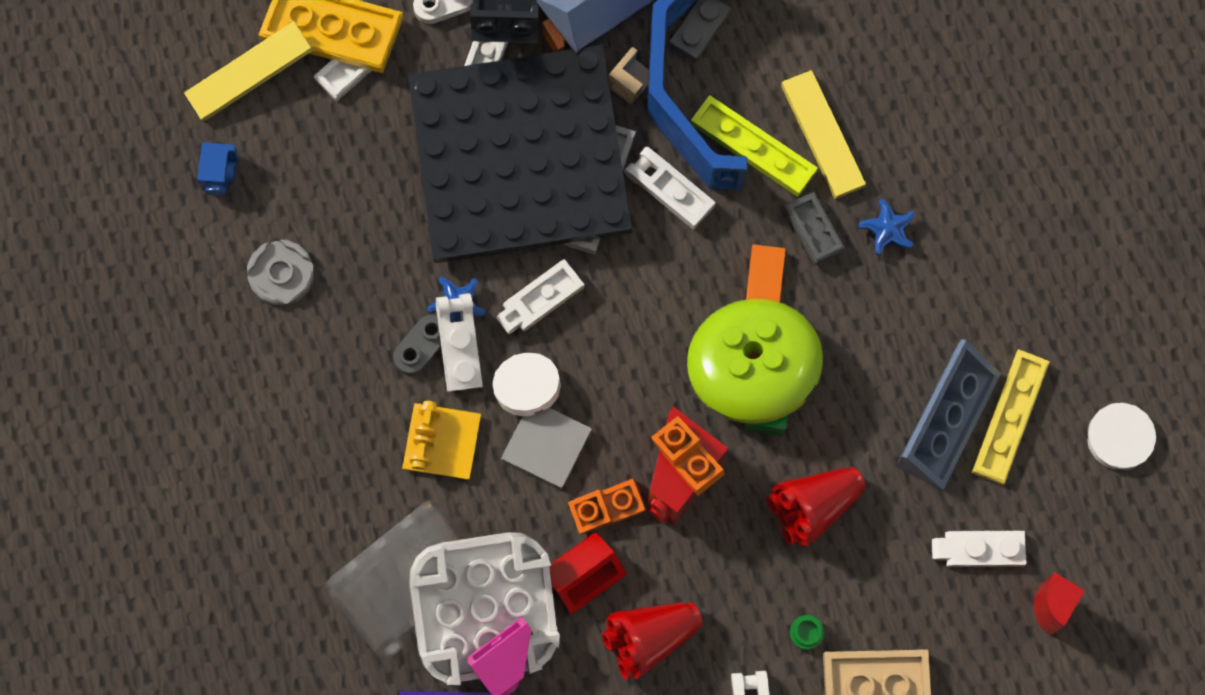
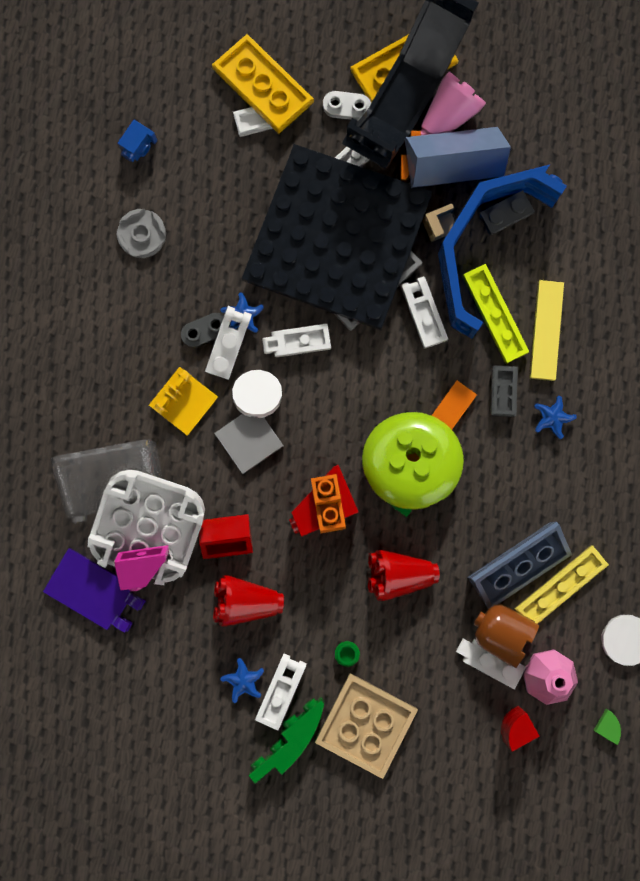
camera: 35 degrees right, 10 degrees up
(248, 71) = (191, 86): light yellow tile -> none
(607, 506) = (265, 501): orange slope -> none
(976, 502) = (504, 633): none -> dark orange cylinder
(1058, 528) = (550, 677): none -> bright pink cone
(1160, 548) = (609, 727): none -> bright green tile

